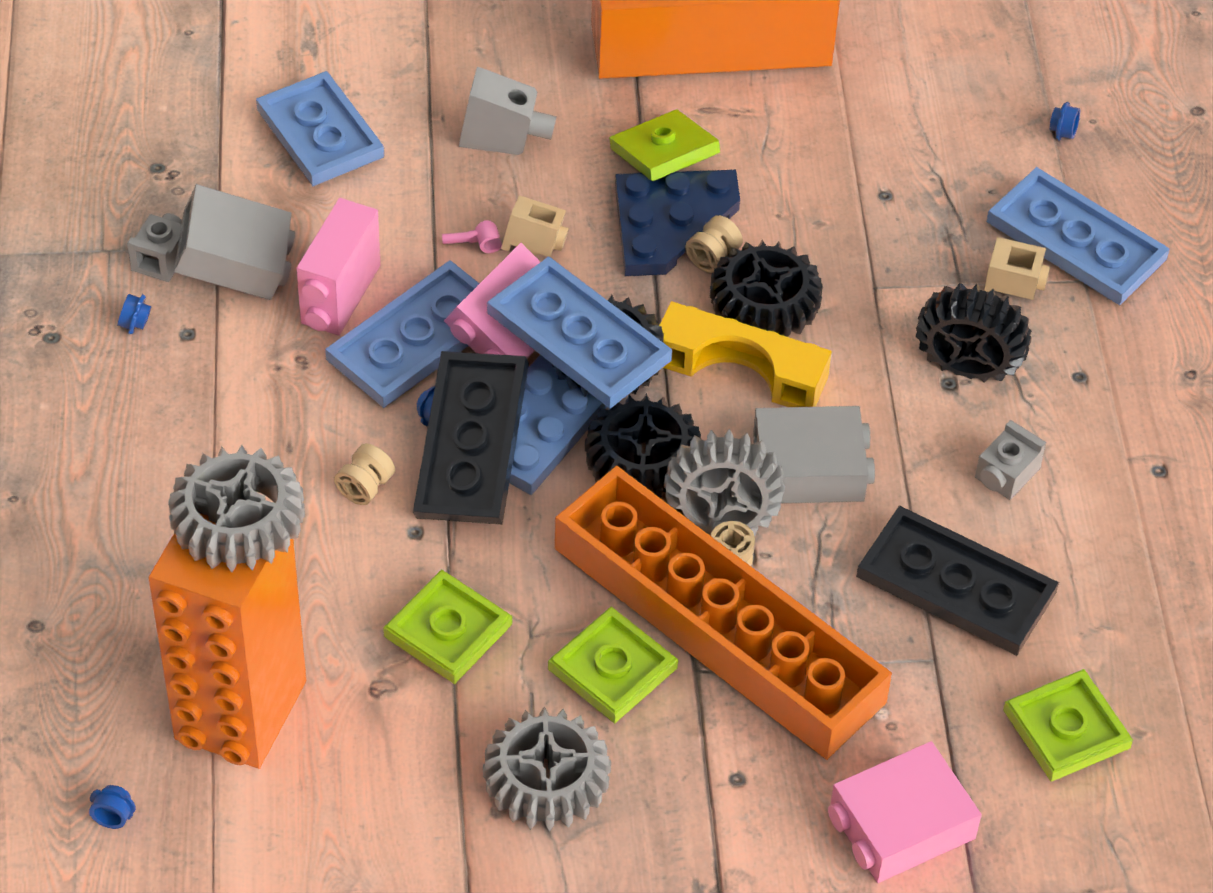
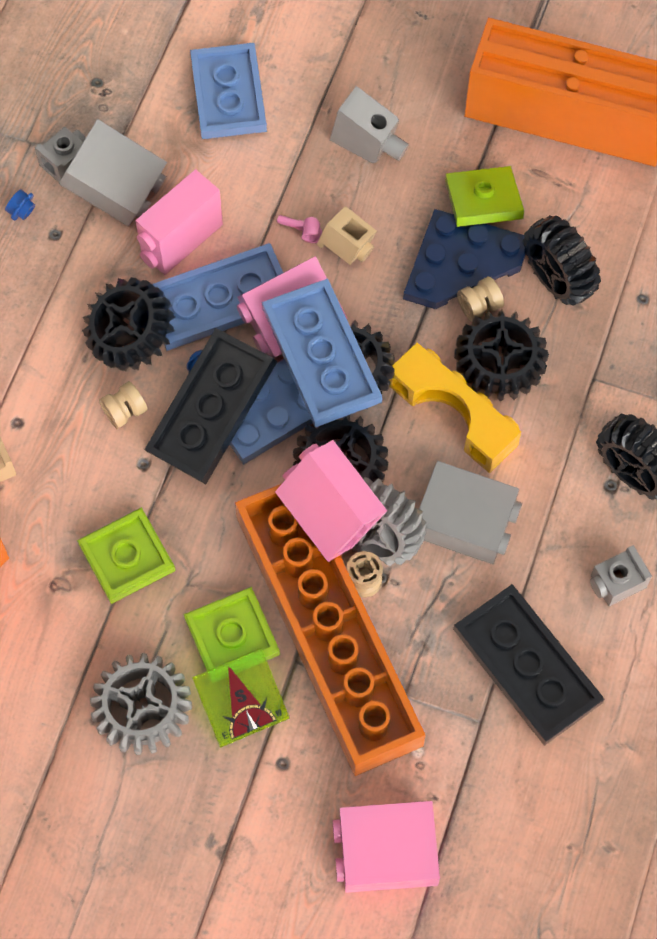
camera: 25 degrees right, 15 degrees up
(336, 401) = (147, 314): none -> black gear
(658, 721) = (240, 697): none -> clear neon green tile
(670, 465) = (330, 499): none -> bright pink brick
(786, 174) = (561, 260): none -> black gear
(1067, 725) = (552, 822): lime plate -> none

